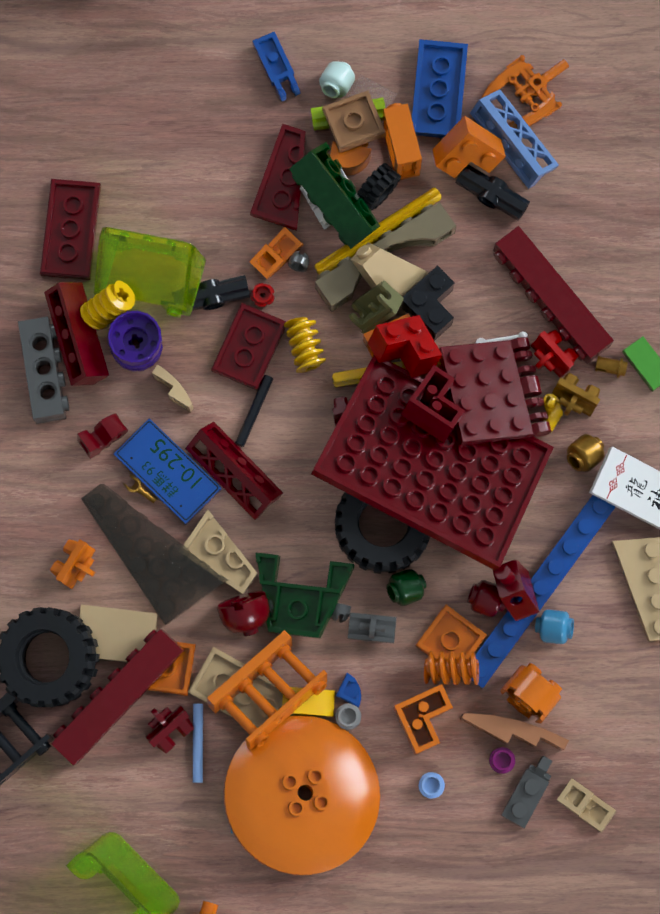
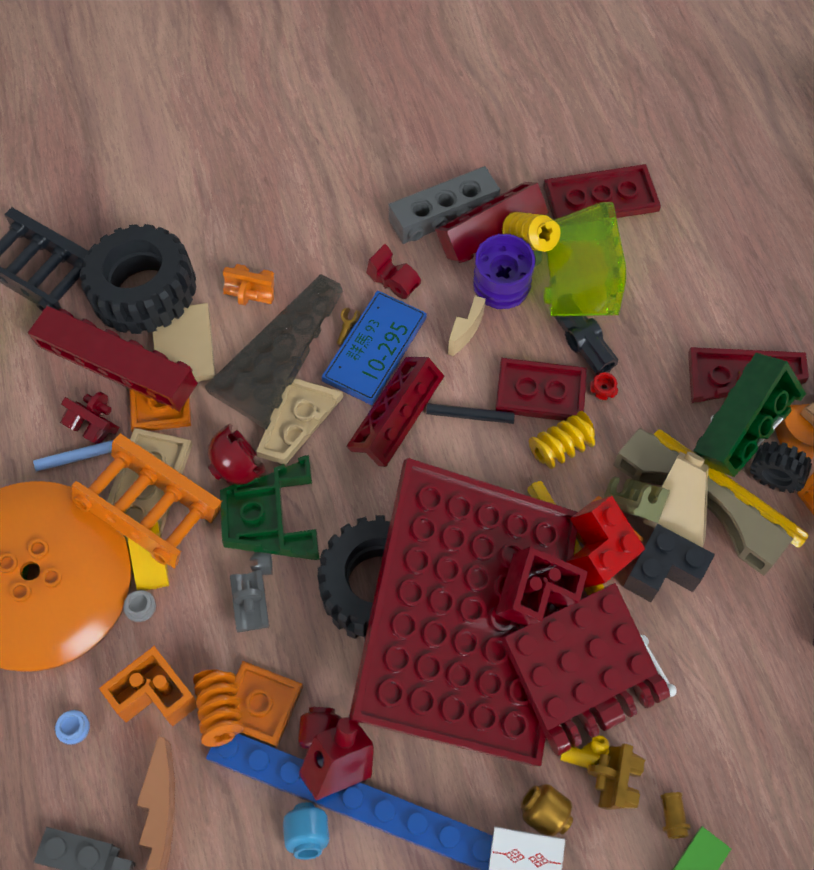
camera: 75 degrees right, 15 degrees down
(276, 253) = (653, 388): orange slope -> none
(299, 262) = (657, 412): dark grey hinge -> none
(350, 691) = (171, 601): blue tile -> none
(406, 587) = (310, 629): dark green head -> none
(502, 760) = (119, 809): magenta plate -> none
(531, 692) = (207, 820): orange brick -> none
(551, 355) = (657, 729): red hips -> none
(552, 295) = (735, 714): dark red brick -> none

